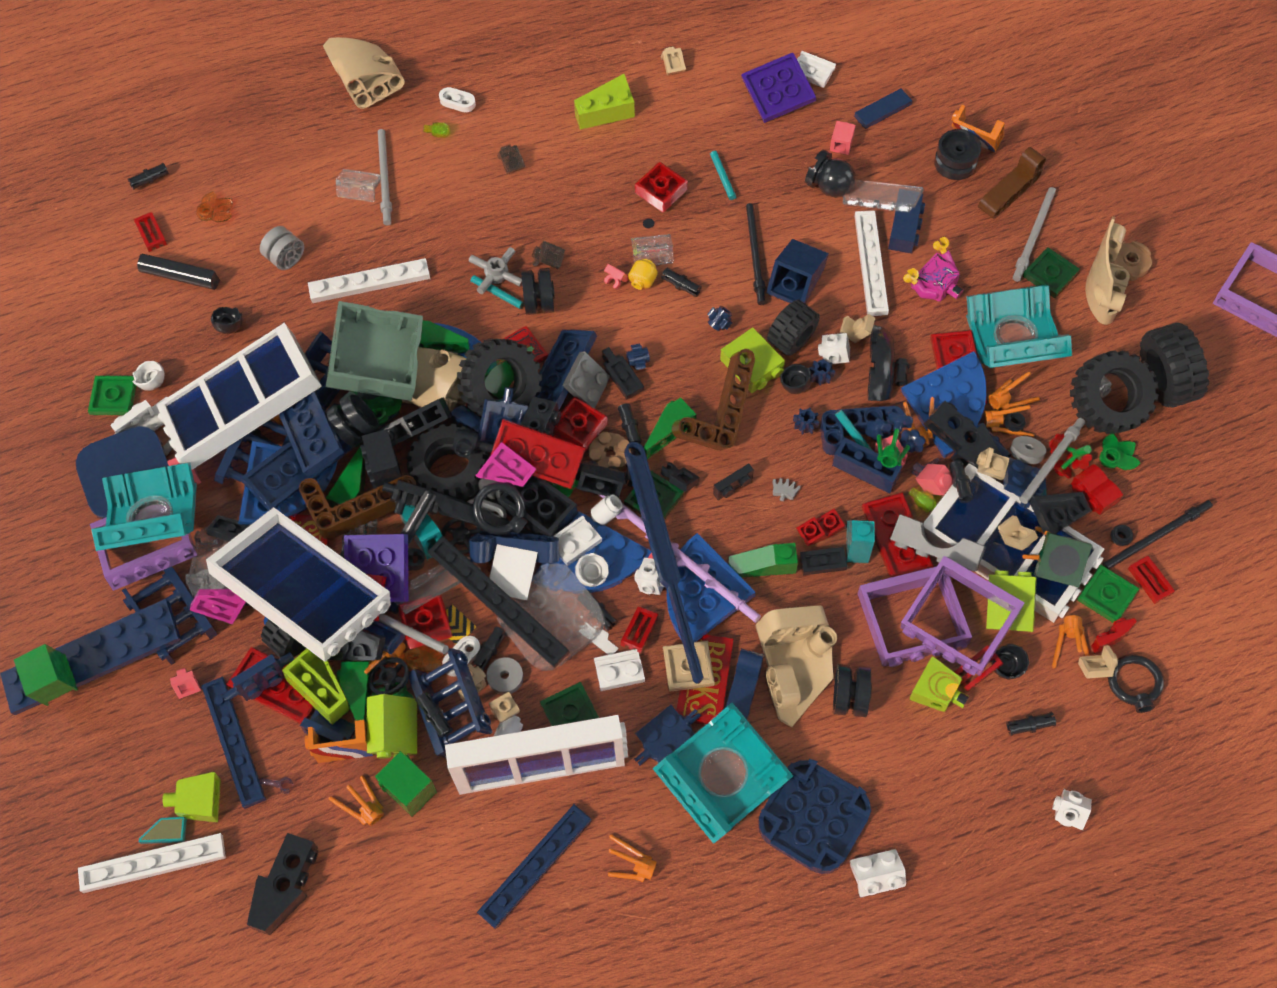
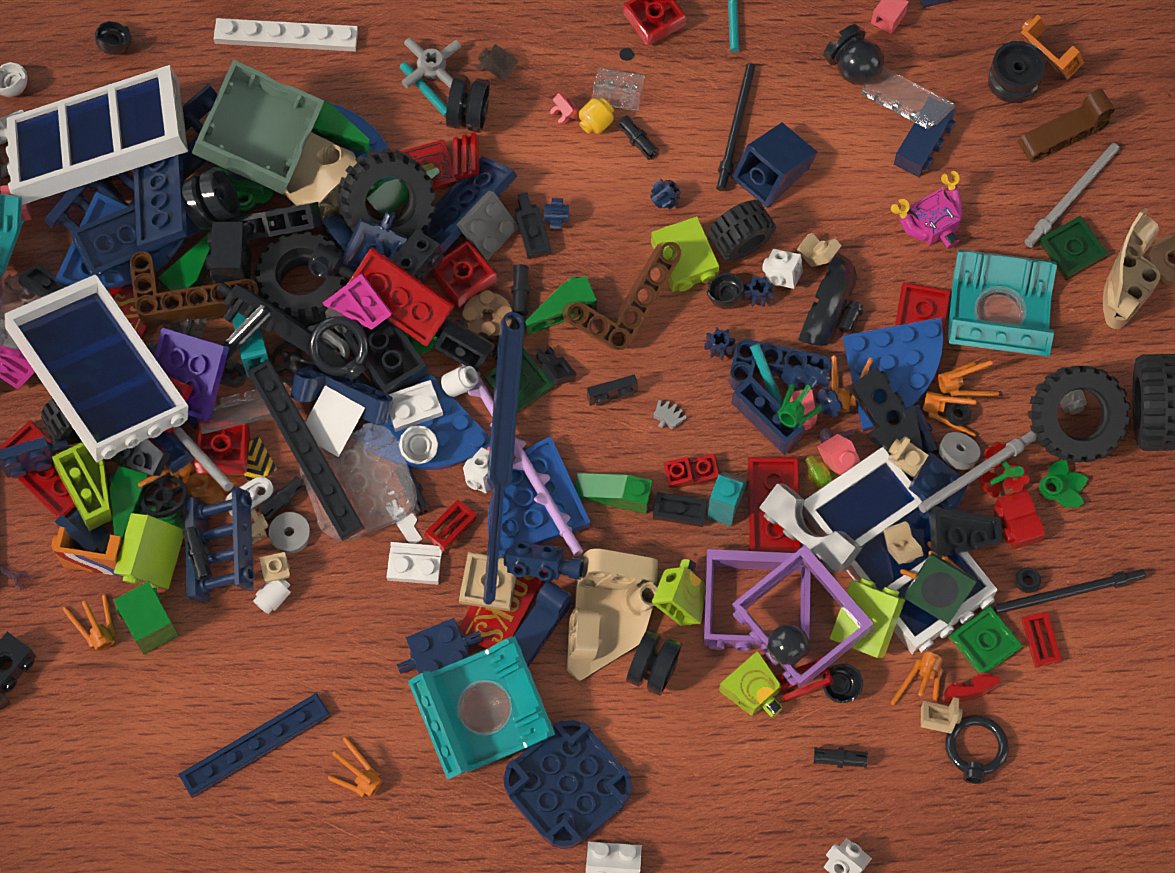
camera: 15 degrees right, 5 degrees up
(537, 754) = (289, 629): white window -> none
(544, 323) = (457, 143): none -> red tile
(569, 706) = (346, 593): dark green tile -> none
(726, 632) = (536, 558): none -> dark blue brick
(852, 628) = (681, 594): none -> lime torso
(871, 263) = (865, 176): white plate -> none
(961, 481) = (863, 466): black pin -> none
(961, 641) = (788, 644): none -> black hair

